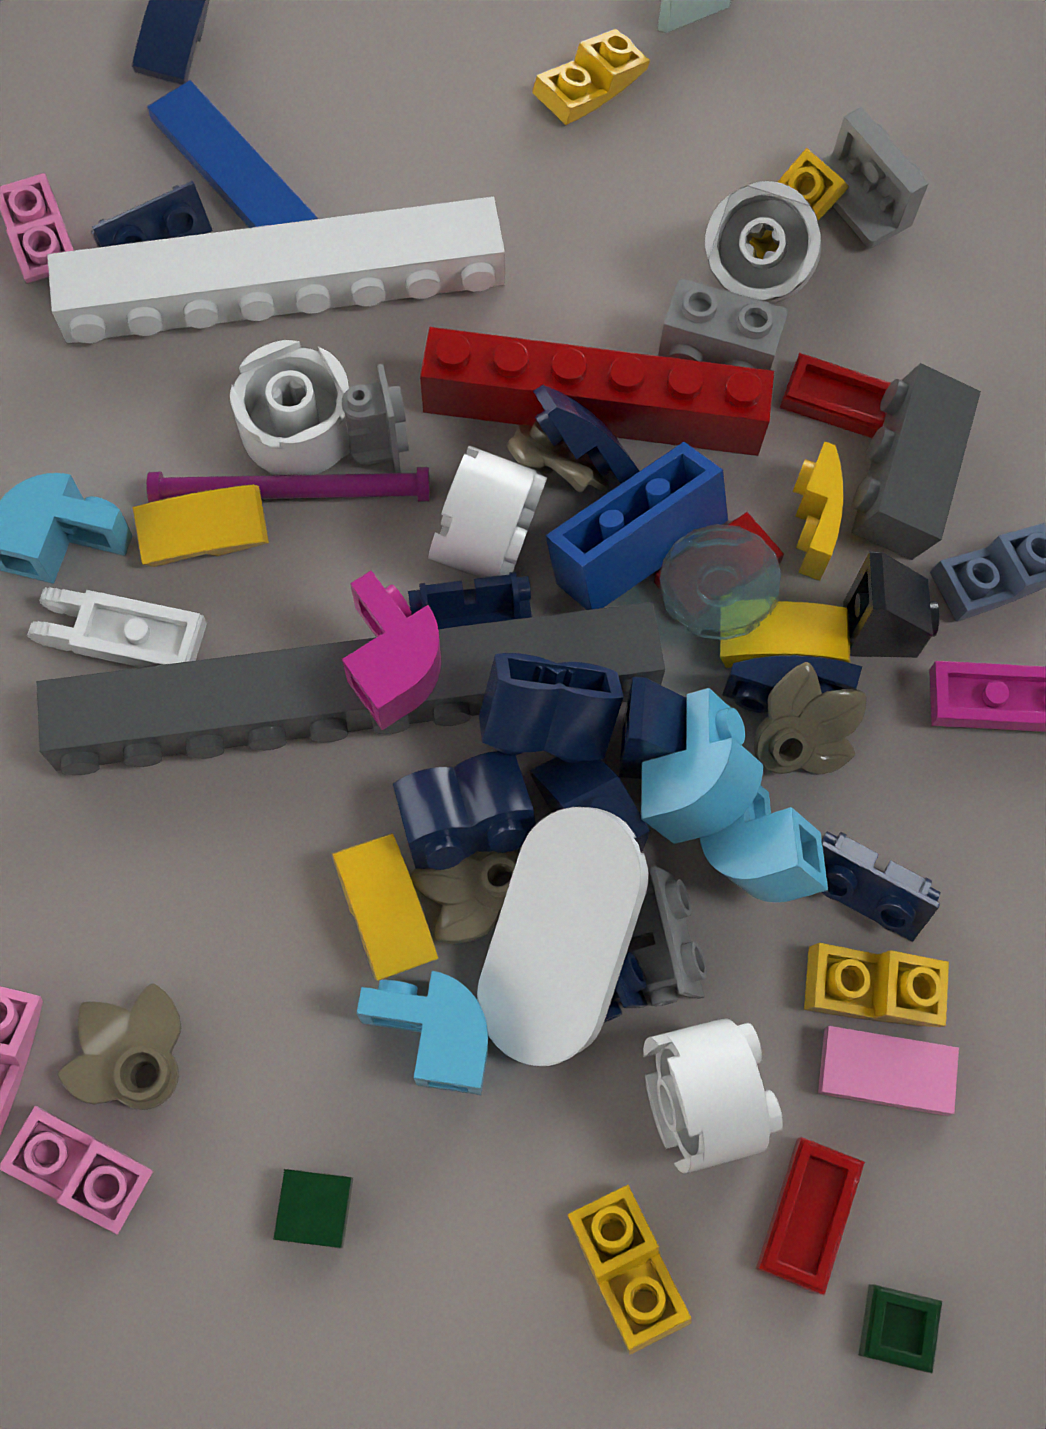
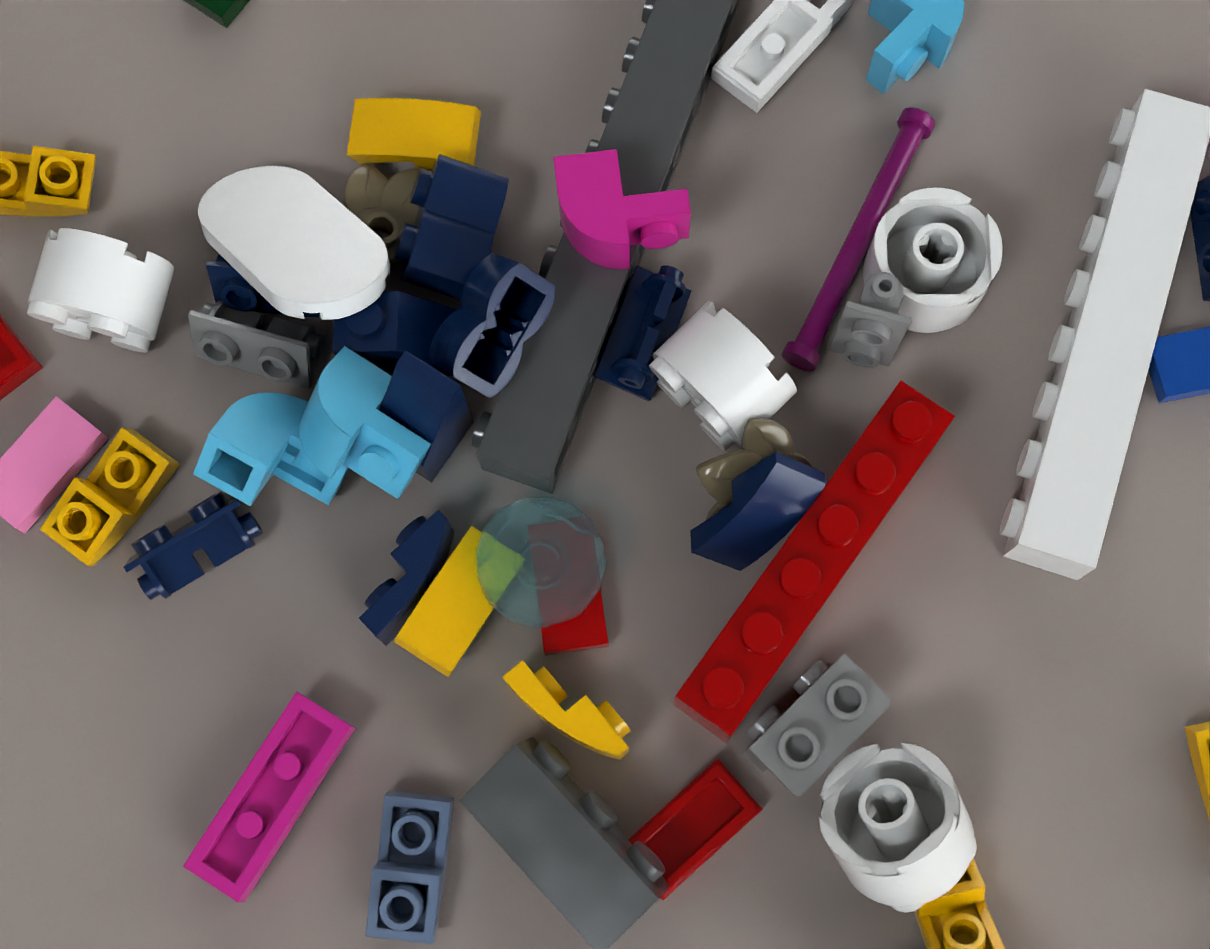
camera: 125 degrees right, 5 degrees up
(200, 524) = (852, 140): yellow slope -> none
(451, 1028) = (289, 133): medium azure brick -> none
(635, 526) = (638, 513): blue brick -> none
(813, 719) = (360, 552): dark tan plate -> none
(889, 610) = (417, 707): black slope -> none

